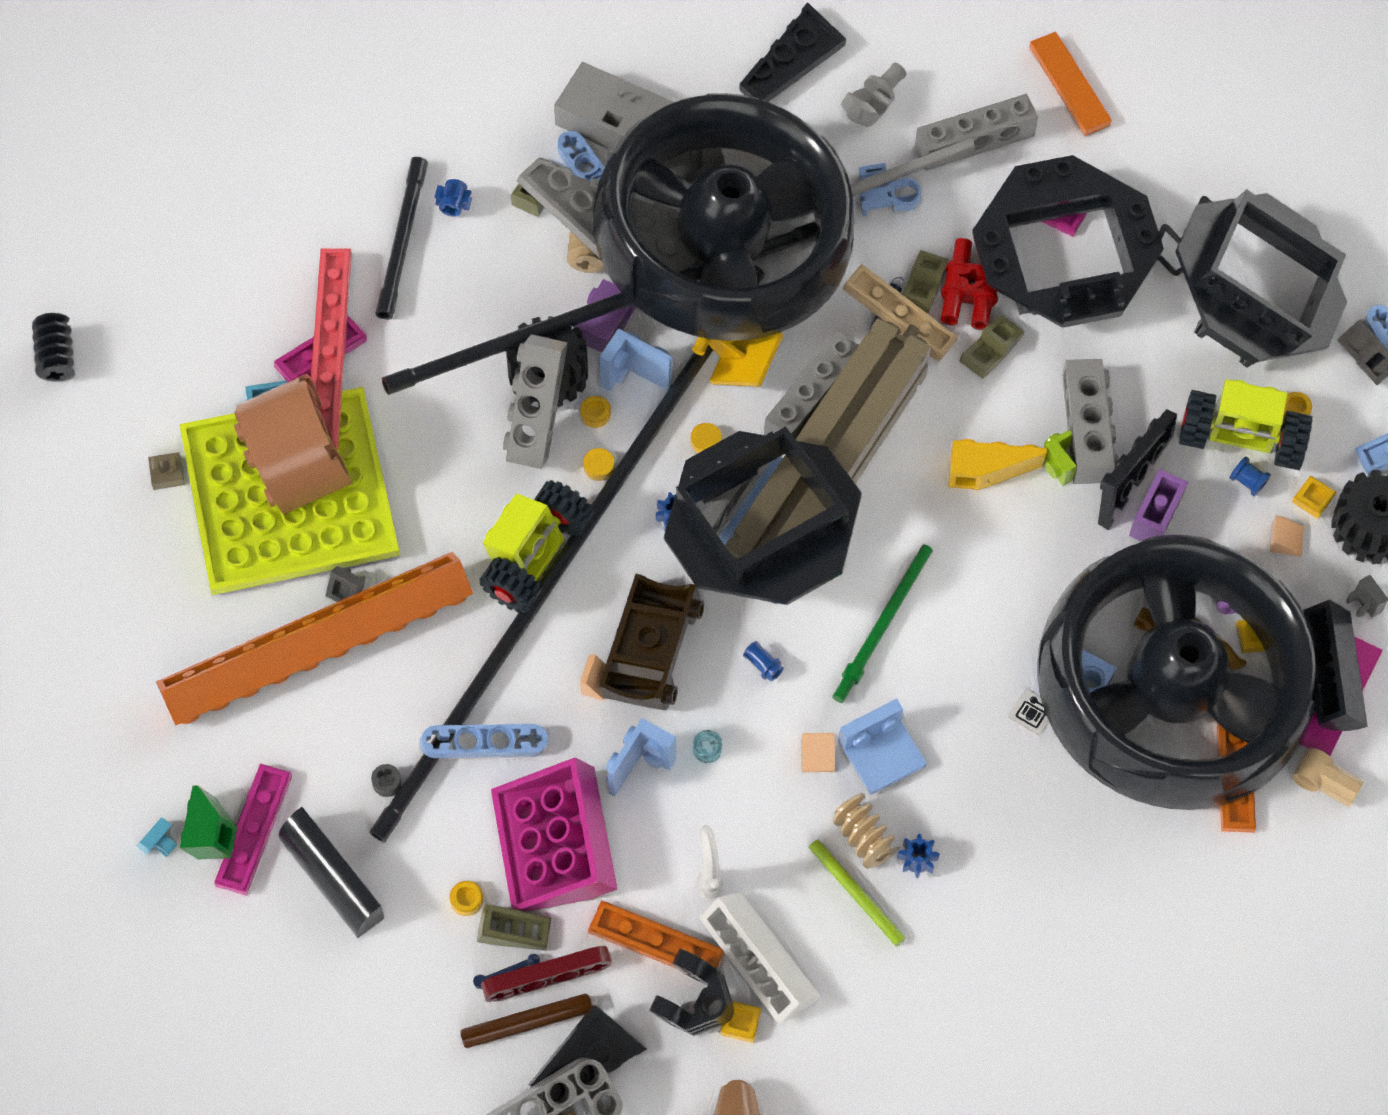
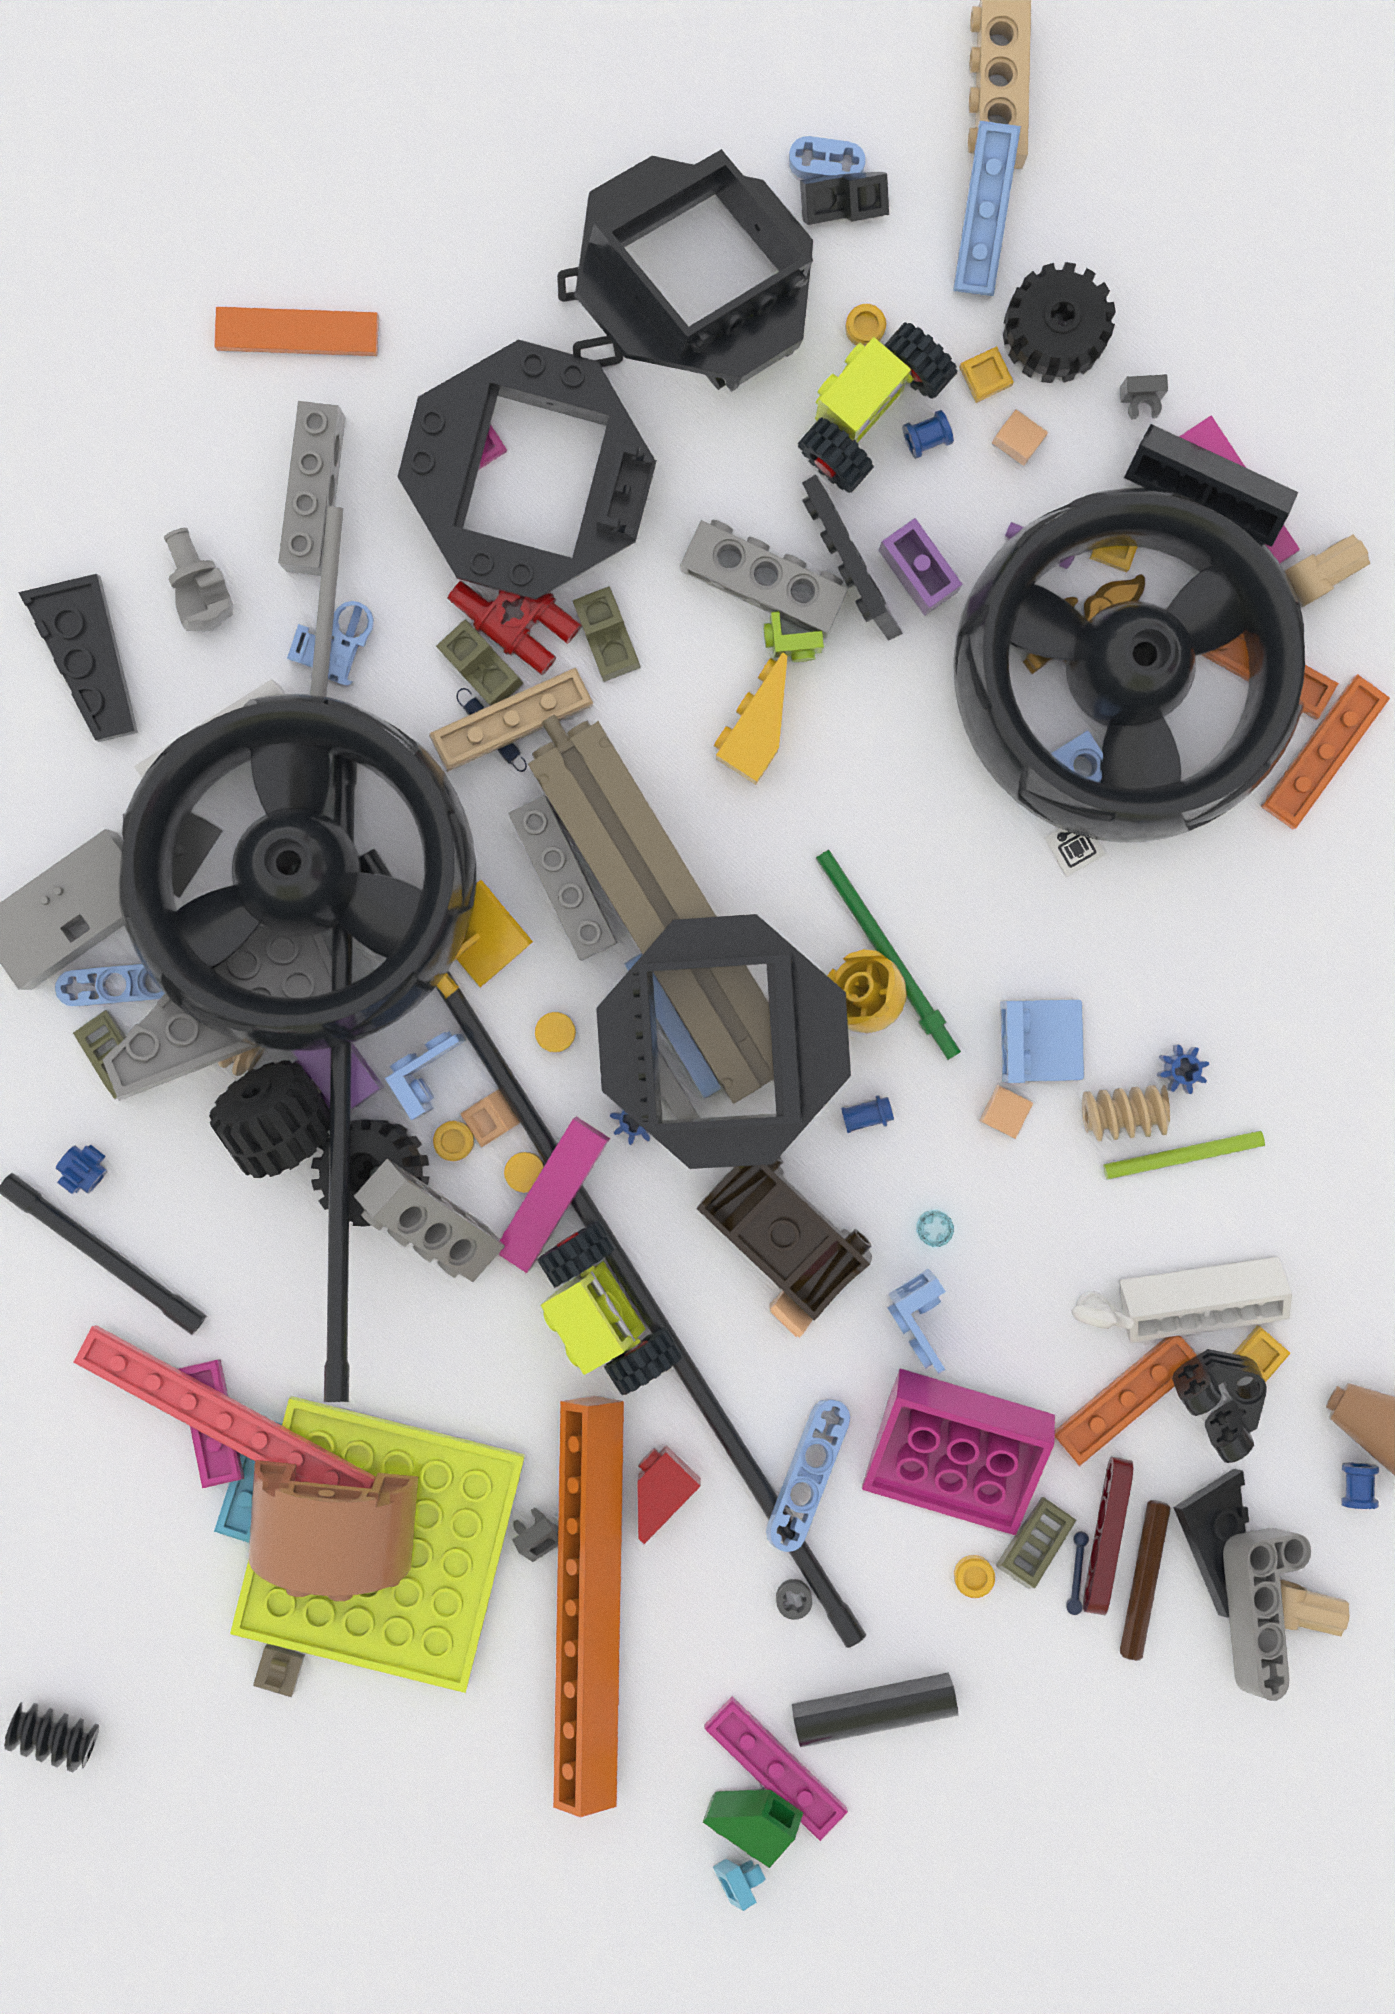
camera: 60 degrees left, 25 degrees up
(420, 651) = (662, 1489): none -> red slope
(551, 279) = (271, 1119): none -> black wheel
(600, 480) = (552, 1193): none -> dark pink tile
(623, 426) = (490, 1118): none -> light nougat slope
(848, 614) = (872, 990): none -> yellow cylinder
(1202, 846) = (1325, 752): none -> orange tile

